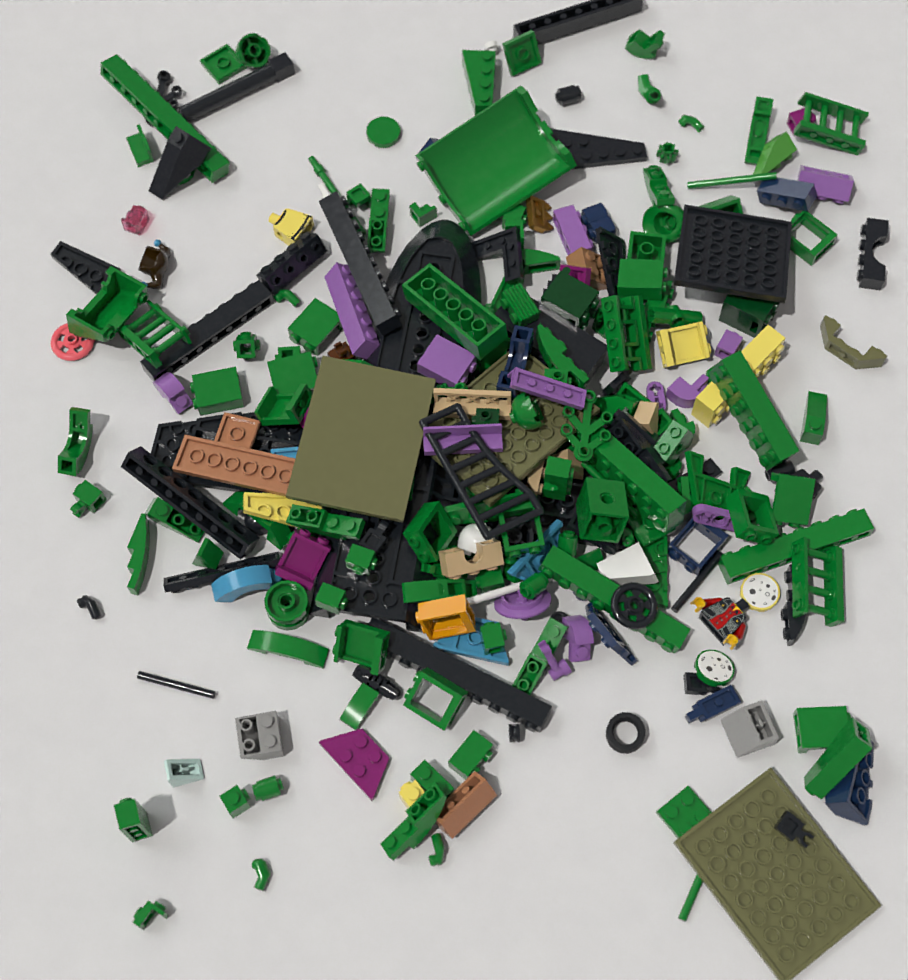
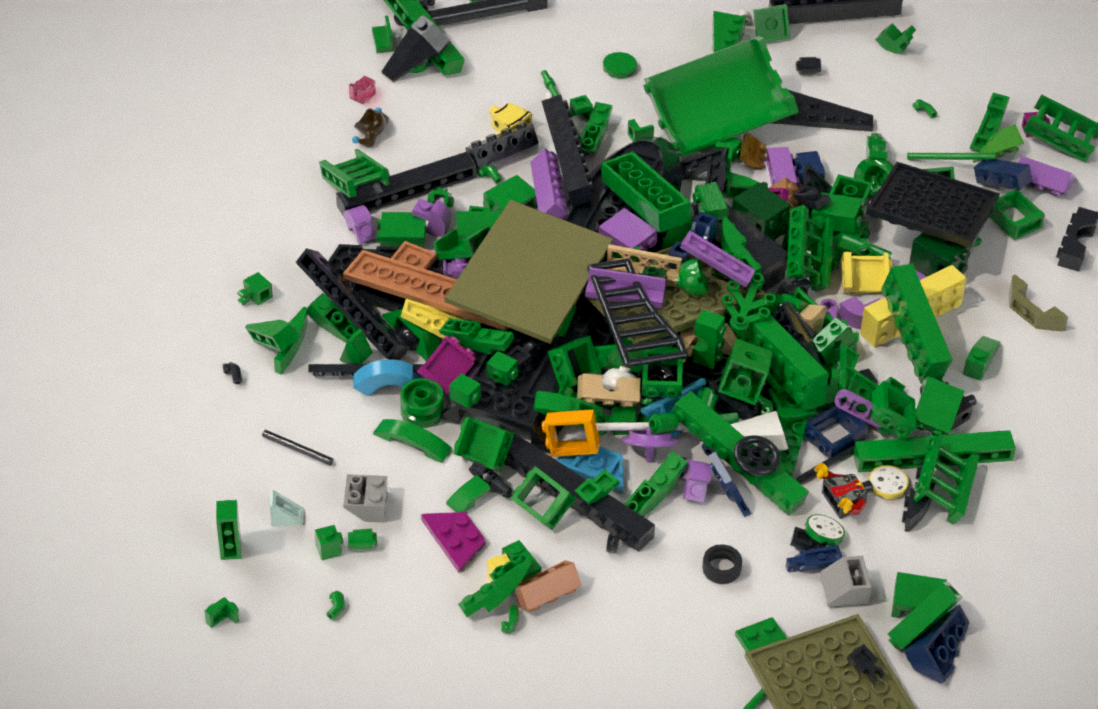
camera: 10 degrees right, 20 degrees down
(70, 355) = (276, 171): coral plate -> none
(78, 444) = (259, 247): green arch -> none
(83, 266) = (305, 118): black wing -> none
(109, 308) = (327, 143): green windscreen -> none
(120, 558) = (273, 334): none -> green slope
(247, 367) = (437, 215): none -> medium lavender brick
(284, 437) = (454, 268): none -> medium lavender plate
(471, 755) = (567, 547): green brick -> none
(485, 676) = (597, 488): none -> green slope
(492, 638) = (613, 460): green brick -> none
(557, 668) = (670, 502): medium lavender brick -> none
(613, 270) = (811, 198): none -> black slope
(649, 92) = (887, 74): green arm -> none
(667, 153) = (893, 126): green gear -> none

